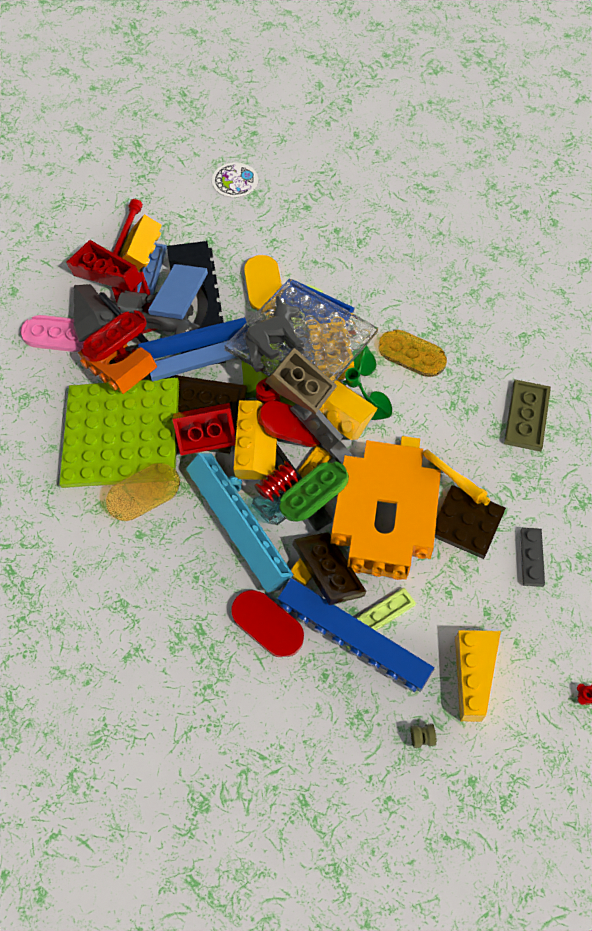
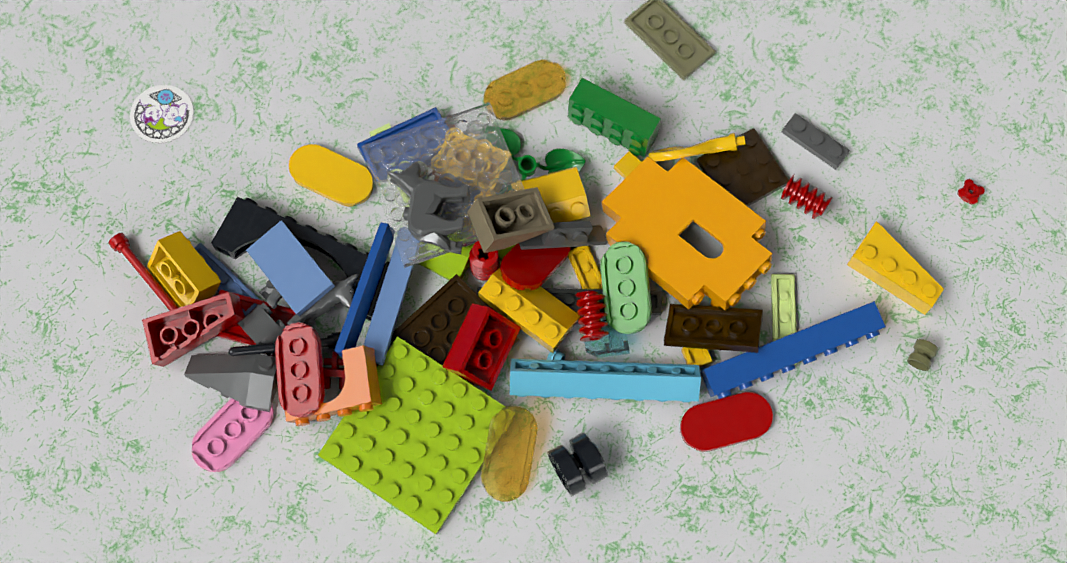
camera: 55 degrees left, 10 degrees up
(163, 537) = (583, 461): none -> black wheel
(433, 411) = (613, 118): none -> green brick
(479, 574) = (805, 197): none -> red piece

